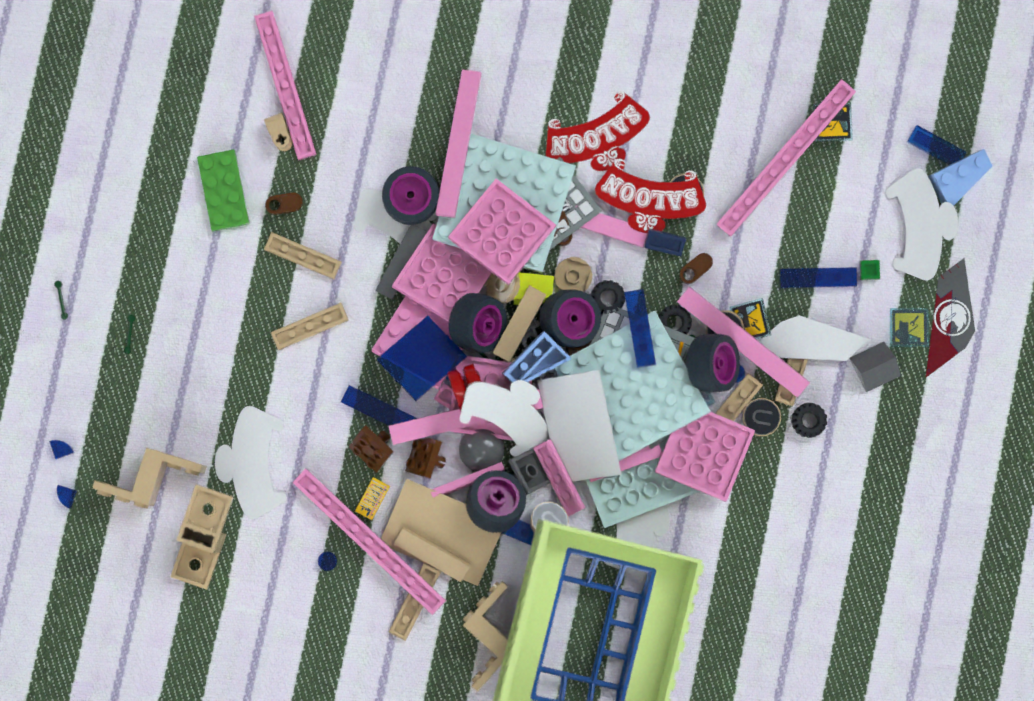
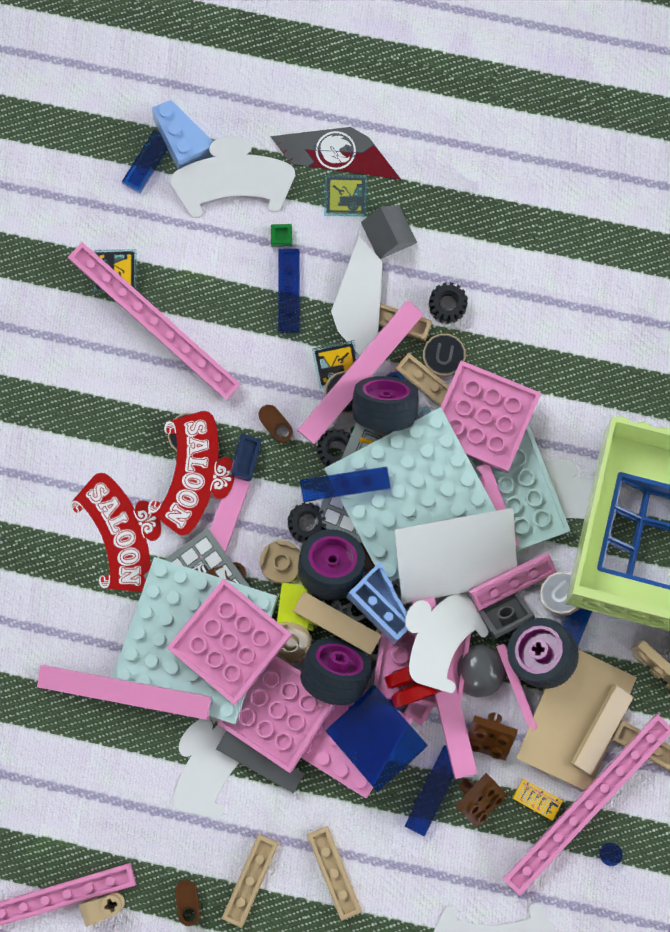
camera: 85 degrees left, 5 degrees down
(415, 209) = (197, 759): wheel -> none

